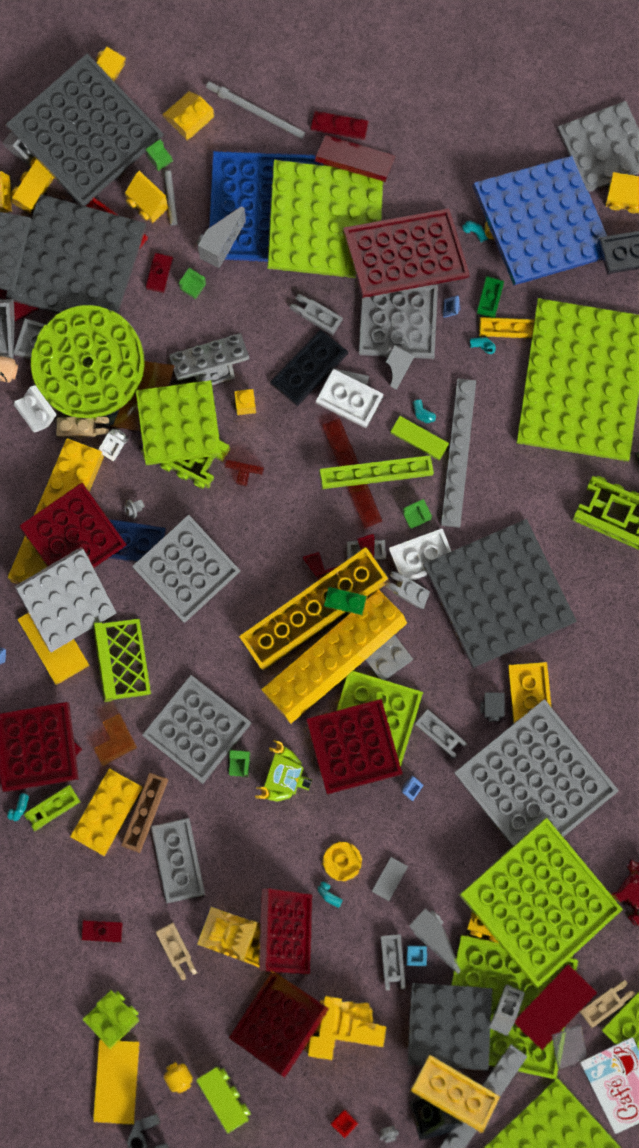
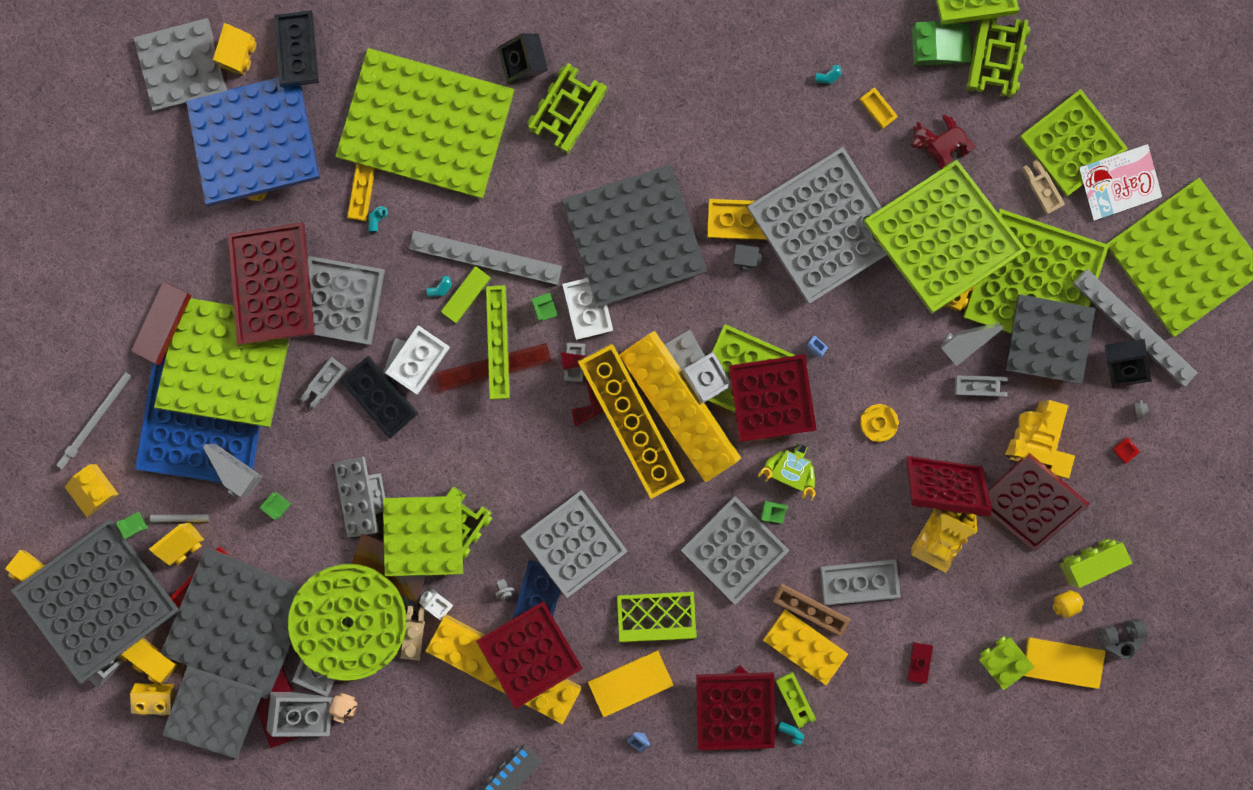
camera: 85 degrees left, 10 degrees up
(35, 409) = (390, 680): white bracket -> none
(65, 599) = (593, 668): light grey plate -> none
(120, 742) = (739, 626): clear orange plate -> none
(159, 273) = (259, 538): dark red plate -> none
(175, 949) = (946, 593): tan hinge -> none
(244, 471) = (478, 474): clear red tile -> none
(245, 402) = (407, 465): yellow brick -> none
(327, 896) = (911, 441): teal arm -> none
(339, 125) = (122, 335): dark red plate -> none
(345, 601) = (630, 389): green plate -> none
(366, 678) = (706, 378): none -> tile
(389, 879) = (901, 379): light grey tile -> none
(399, 362) = (386, 304): light grey arch -> none
(408, 590) = (623, 324): light grey hinge -> none
(416, 955) = (977, 362): medium azure tile -> none
(439, 732) = (765, 313): light grey hinge -> none
(451, 306) = (332, 245): medium blue slope -> none
(455, 1093) = (1118, 341): yellow plate -> none
(476, 228) = (251, 210): teal arm -> none
(490, 297) = (327, 204): green plate -> none
(506, 1010) = (1042, 282): light grey arch -> none
(555, 1007) = (1043, 236): dark red tile -> none
(569, 1046) = (1080, 228): clear piece -> none

